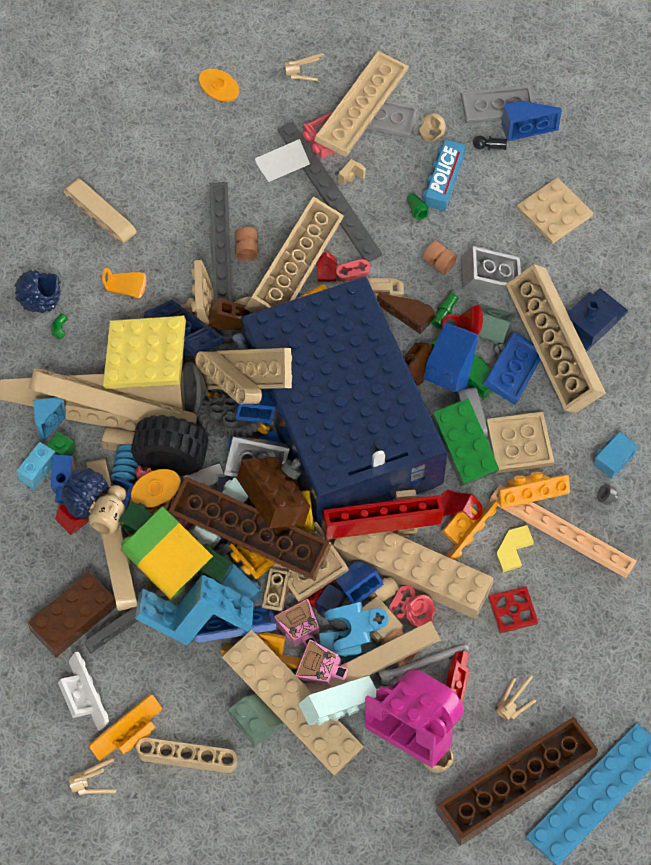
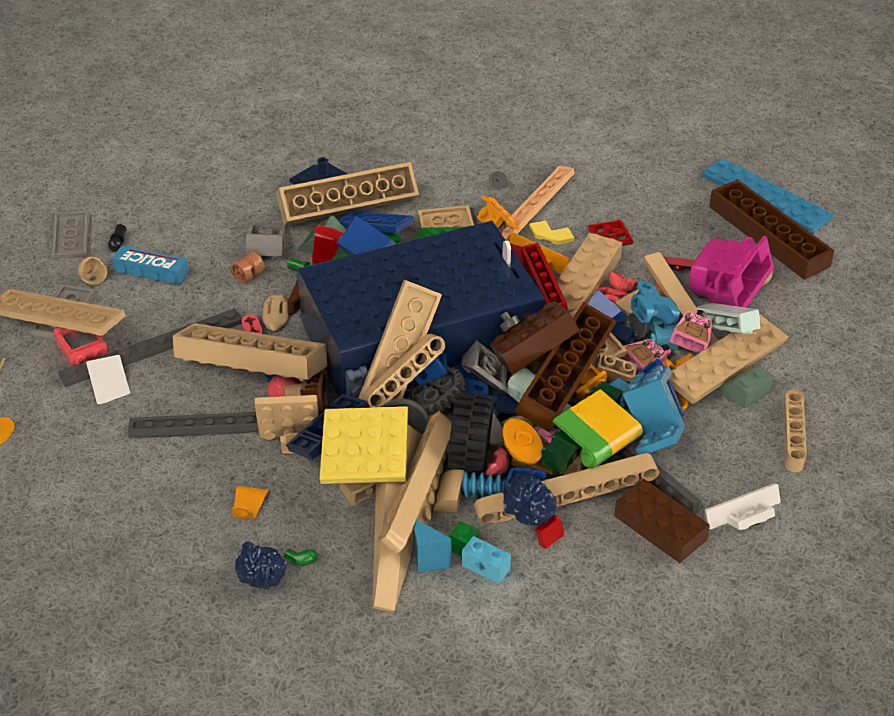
camera: 90 degrees left, 20 degrees down
(62, 469) = (502, 531): blue torso -> none
(80, 780) = (840, 508): tan plant -> none
(100, 210) = (146, 524): tan beam -> none
(108, 510) = (555, 473): tan piece -> none
(127, 730) = (780, 469): light orange bracket -> none
(246, 244) = (213, 400): nougat wheel -> none
(350, 170) = (134, 328): tan bracket -> none
(418, 207) = (183, 284): green cone -> none
(507, 707) = (703, 235): tan plant -> none
(529, 119) = (99, 209): blue slope -> none
(554, 210) = (200, 203): tan plate -> none
(615, 454) = (460, 173): dark azure brick -> none

